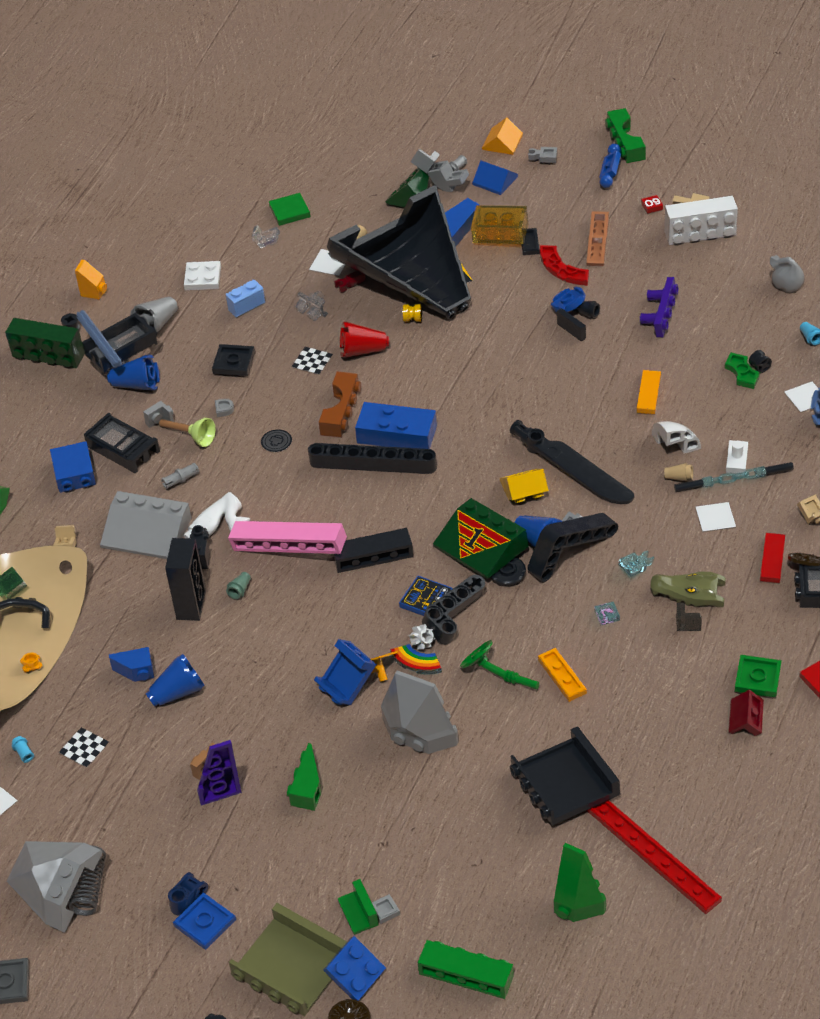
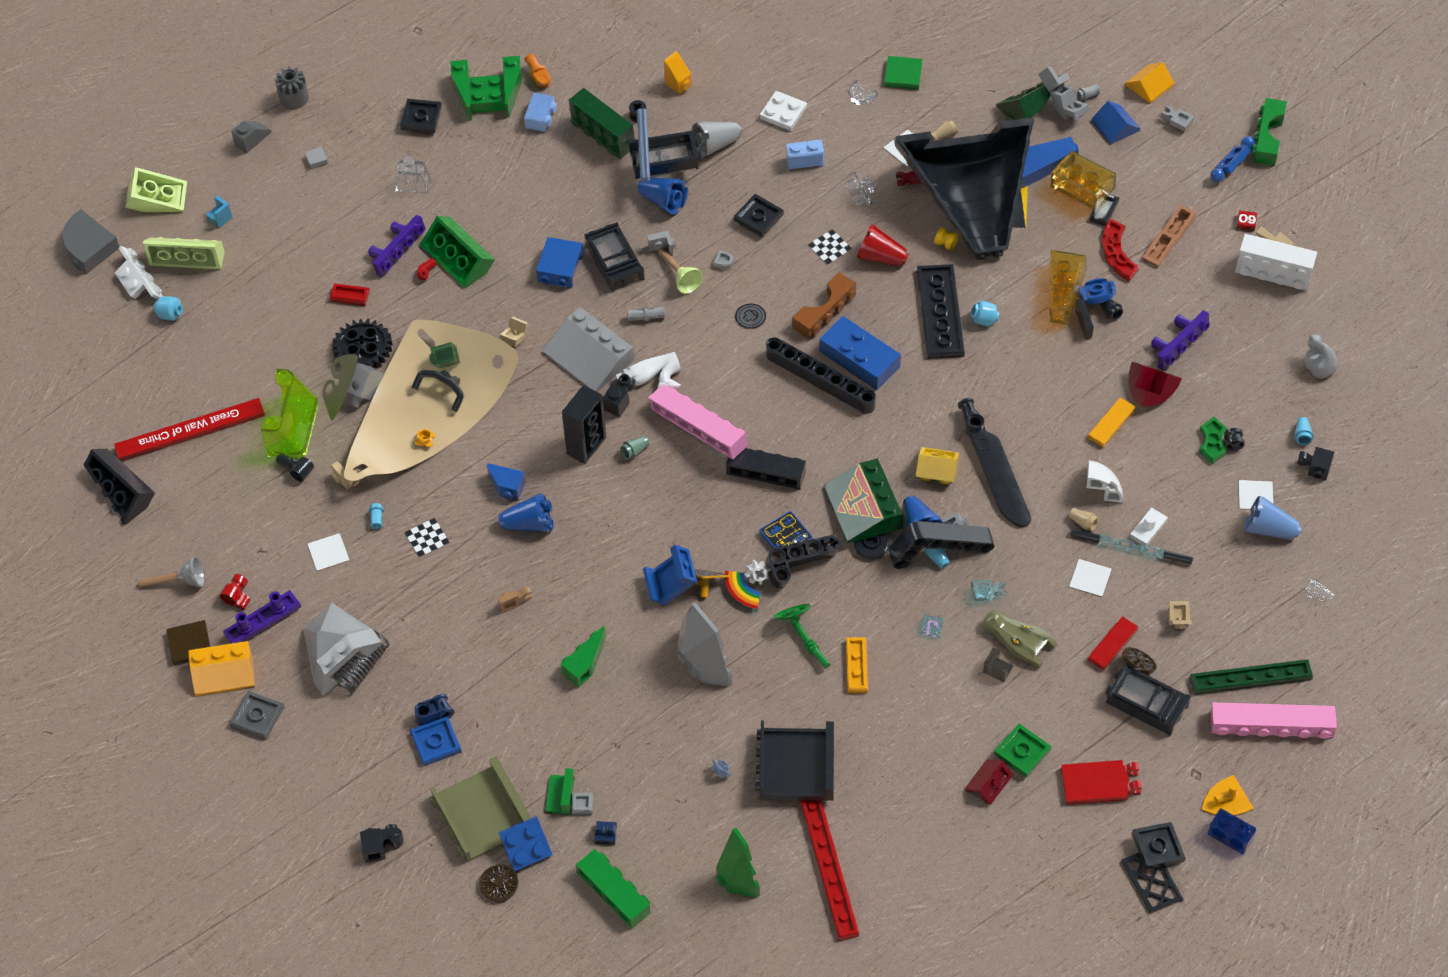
camera: 25 degrees right, 10 degrees up
(219, 774) = (512, 620): dark purple wedge -> none
(424, 924) = (605, 832): none -> dark blue tile
(443, 369) = (940, 311): none -> black tile
(484, 354) = (984, 313): none -> medium azure head
(498, 815) = (721, 768): none -> sand blue plate
(535, 302) = (1066, 278): none -> clear yellow wedge
(574, 555) = (938, 556): none -> medium azure cone
(662, 349) = (1151, 385): none -> dark red brick

